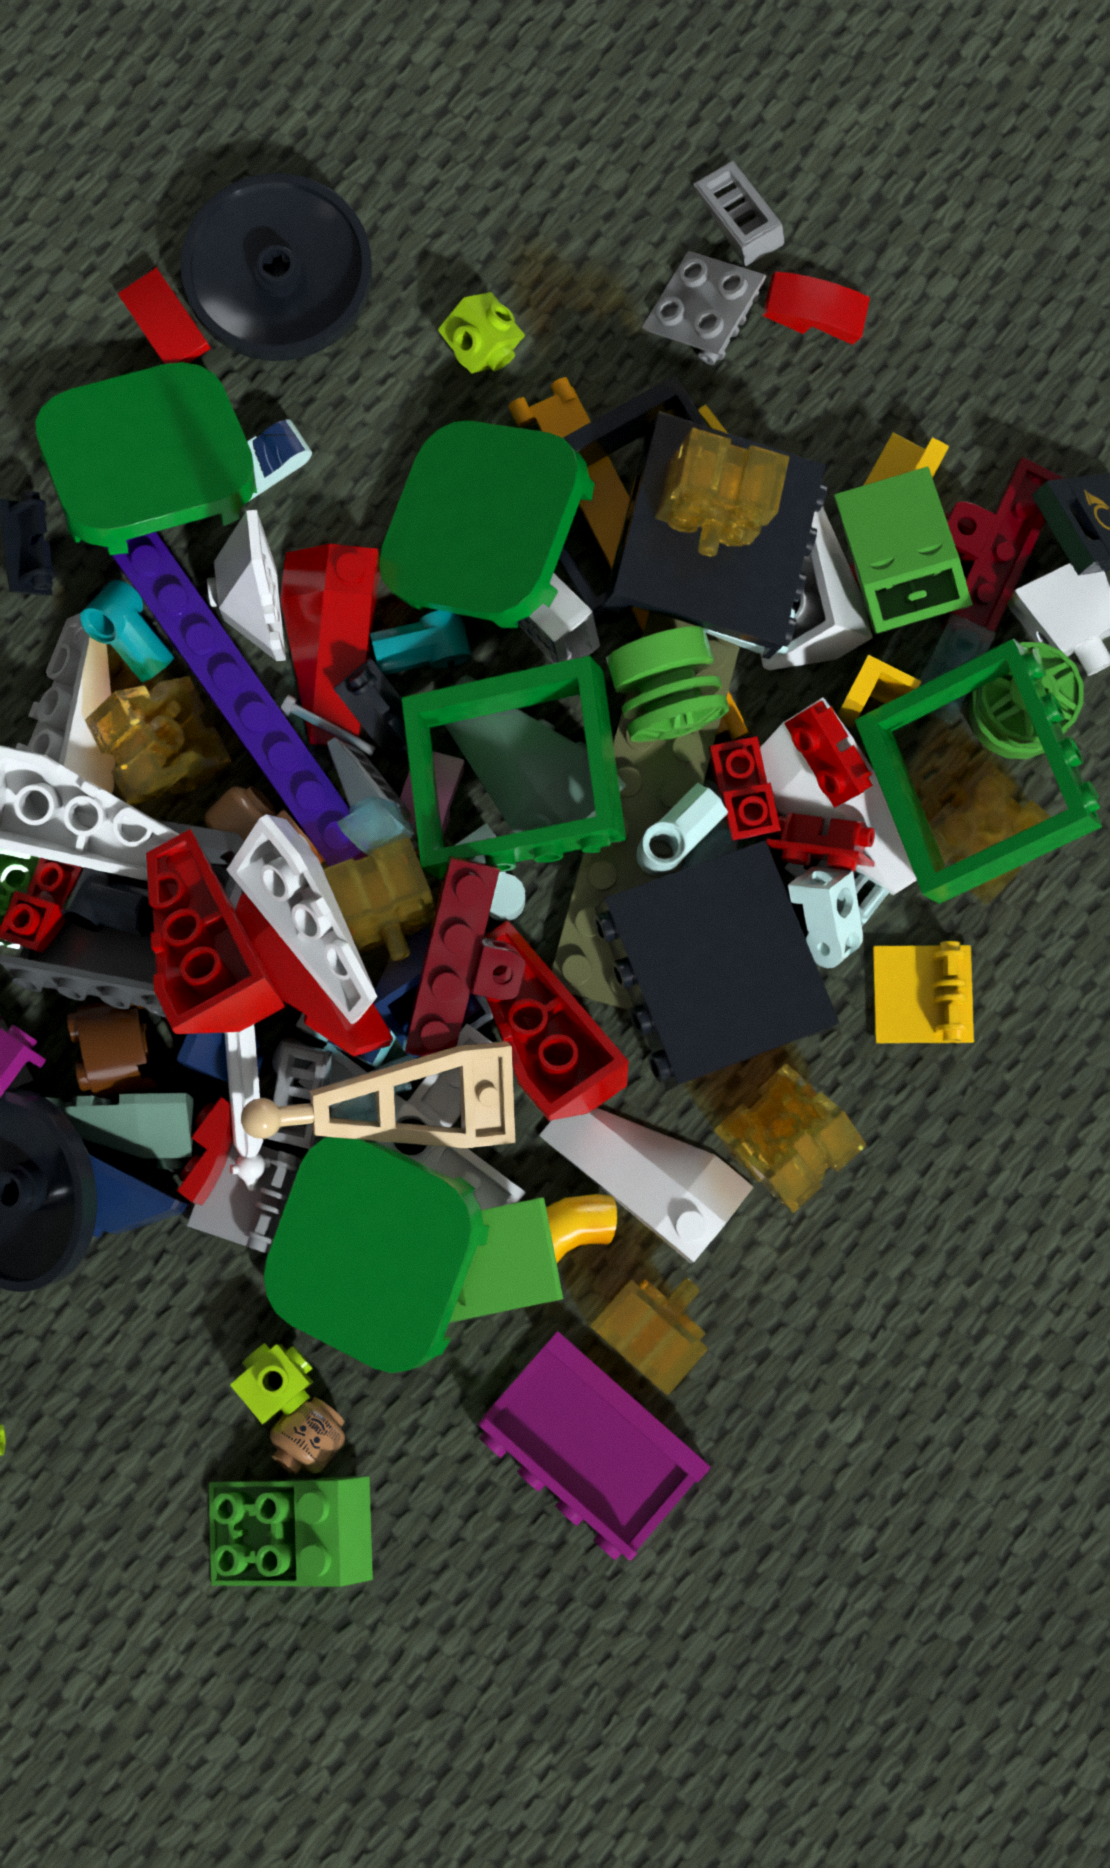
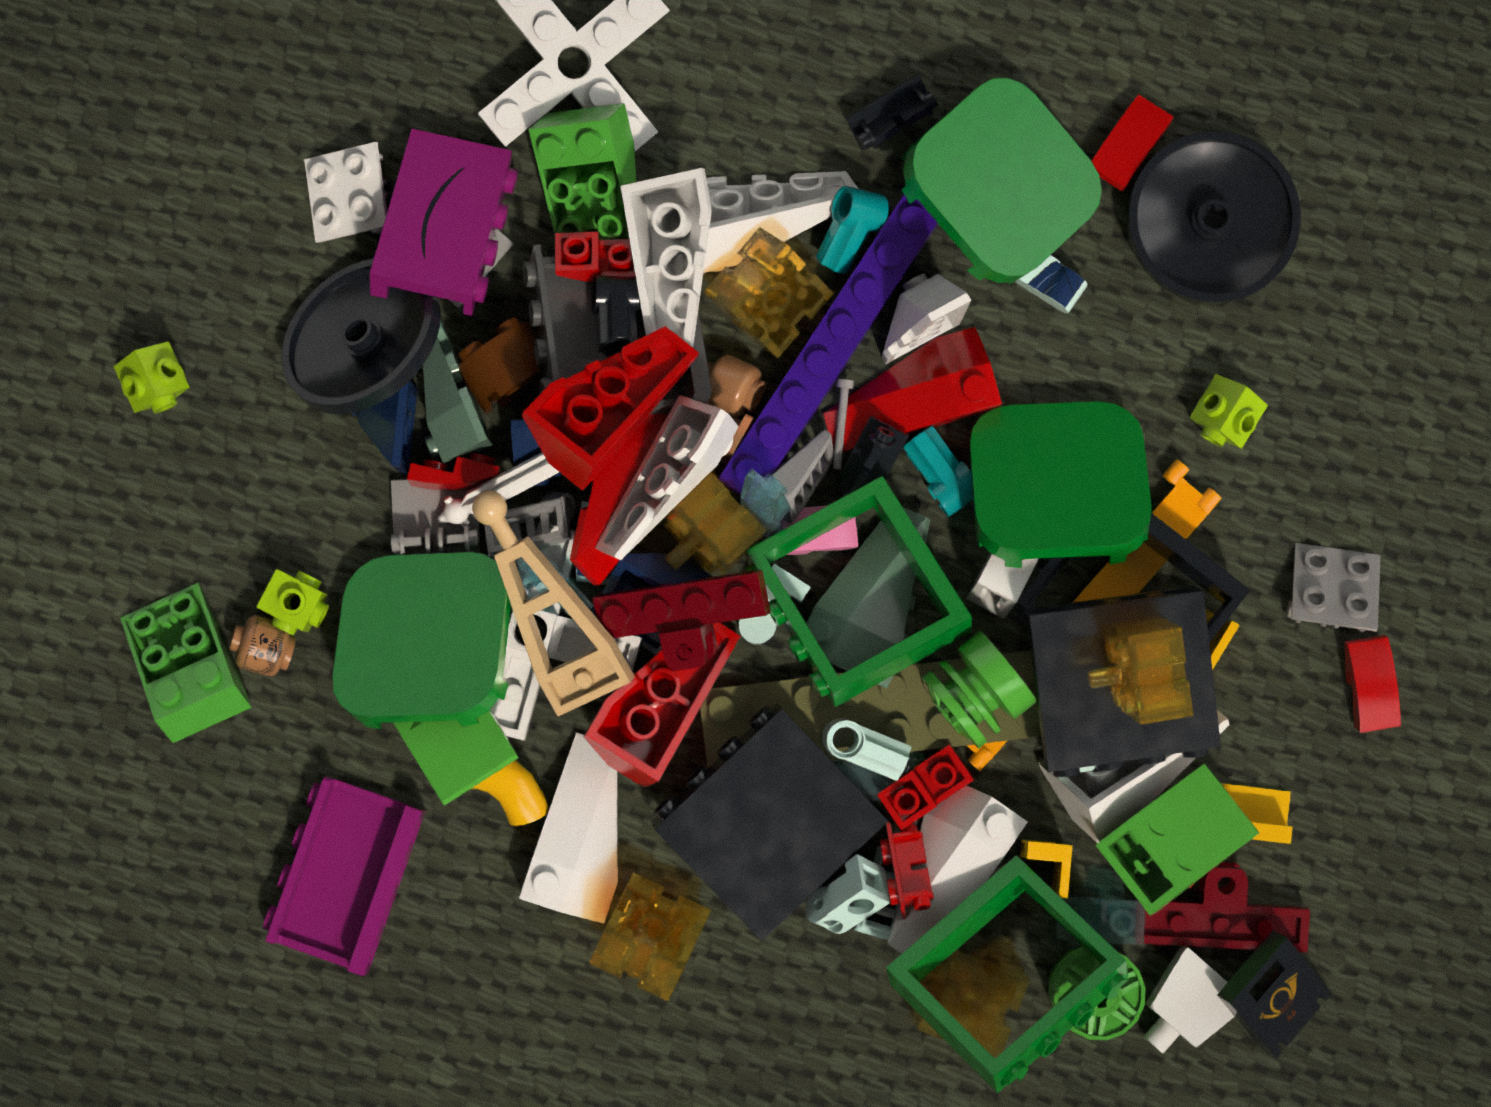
camera: 75 degrees right, 5 degrees up
(653, 1331) = (450, 887): clear yellow brick -> none
(755, 237) = (1409, 611): light grey slope -> none
(838, 773) = (964, 860): red hinge -> none
(923, 994) = (817, 1001): yellow hinge -> none

